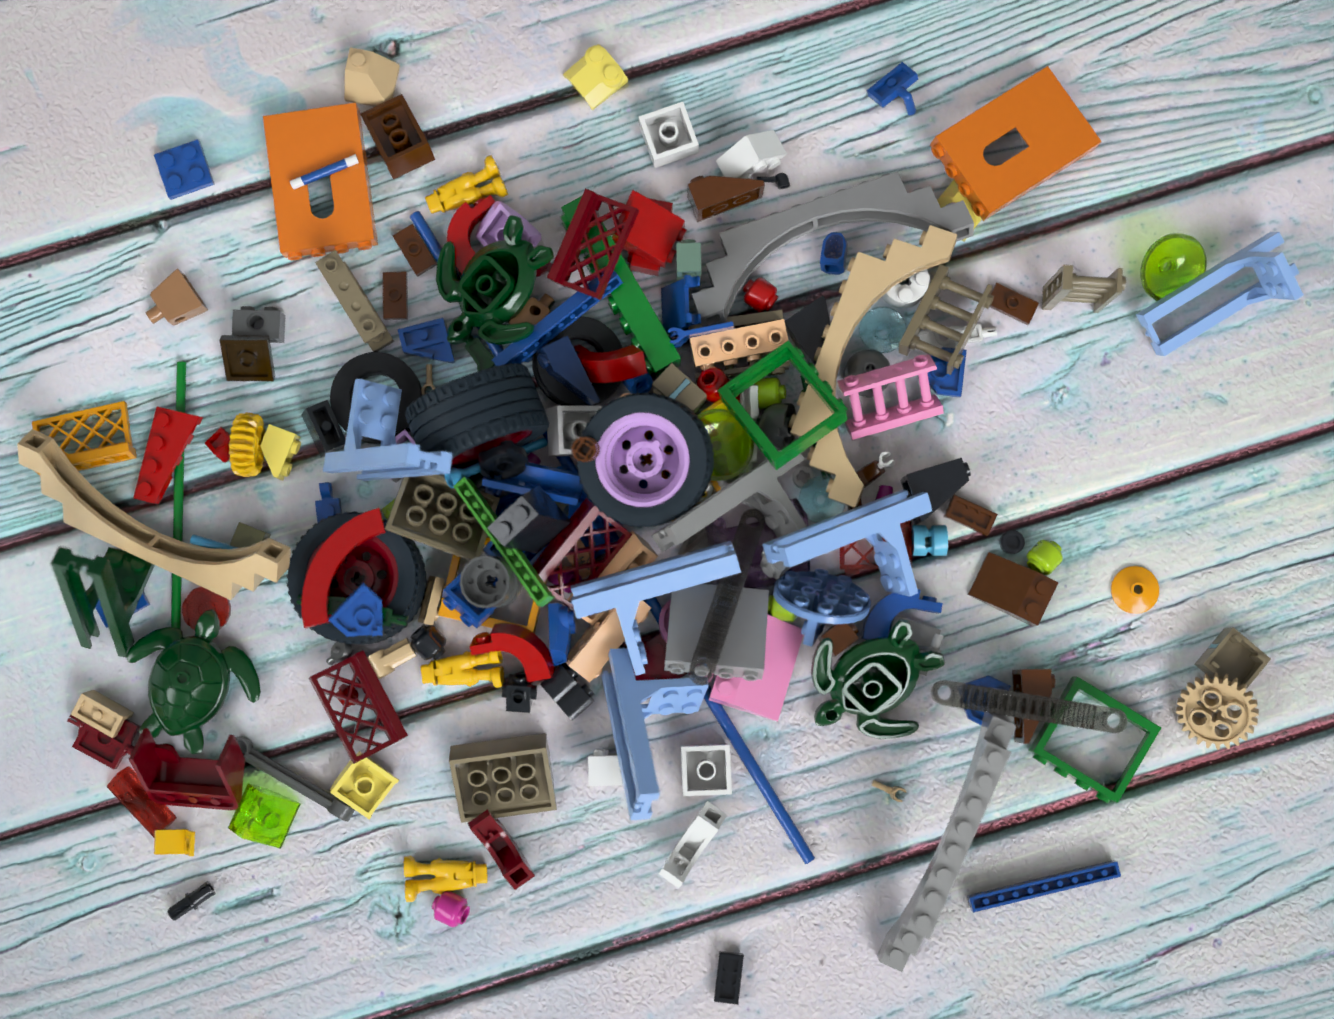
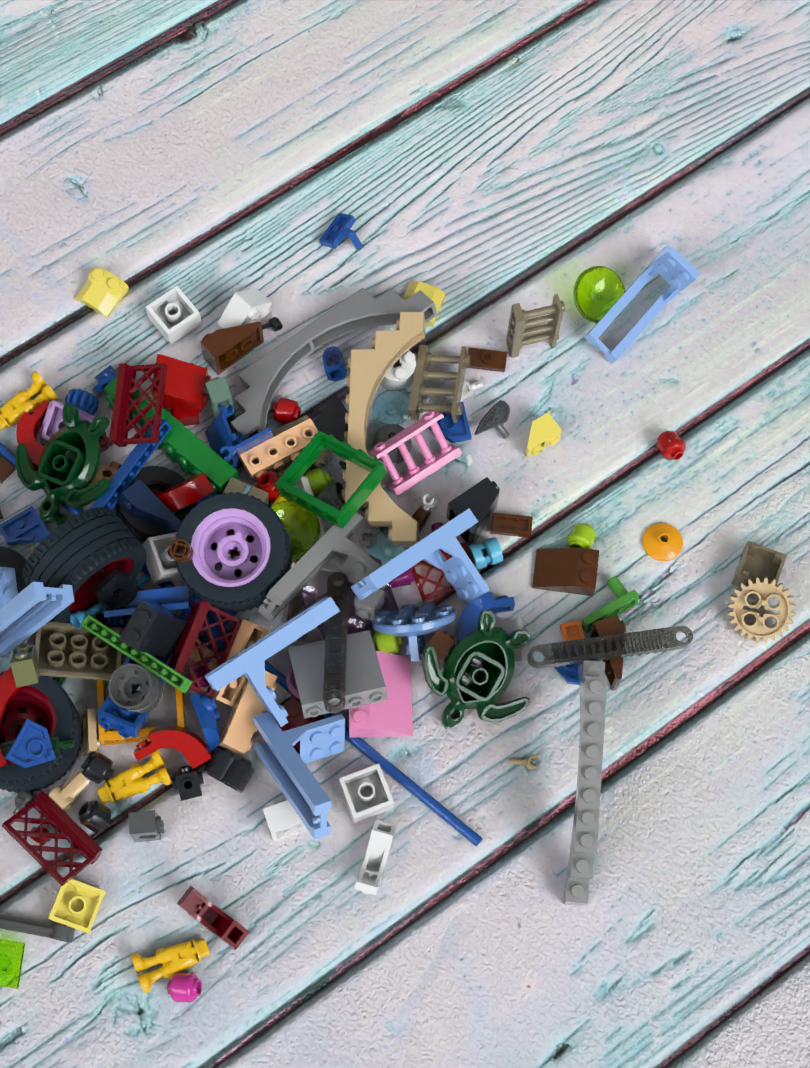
camera: 25 degrees left, 15 degrees down
(378, 520) = (25, 665): none -> olive slope
(410, 695) = (95, 815): none -> black head
(460, 727) = (145, 826): none -> dark grey brick
(503, 776) = (196, 856): dark tan slope -> none
(533, 210) = (82, 400): none -> blue gear
(571, 189) = (104, 379): none -> blue plate
(728, 977) = (444, 964): black plate -> none
(994, 663) = (572, 631): none -> orange plate
(996, 382) = (495, 418): none -> shield
(1012, 542) = (552, 536): black tile -> none
(1042, 417) = (543, 433): none -> light yellow slope
(1044, 886) = (678, 796): blue piece -> none
(1045, 121) = (462, 218): orange panel -> none
(1065, 648) = (622, 604): none -> bright green piece
(1083, 781) = (678, 700): green window -> none
(1187, 480) = (670, 445): none -> red head

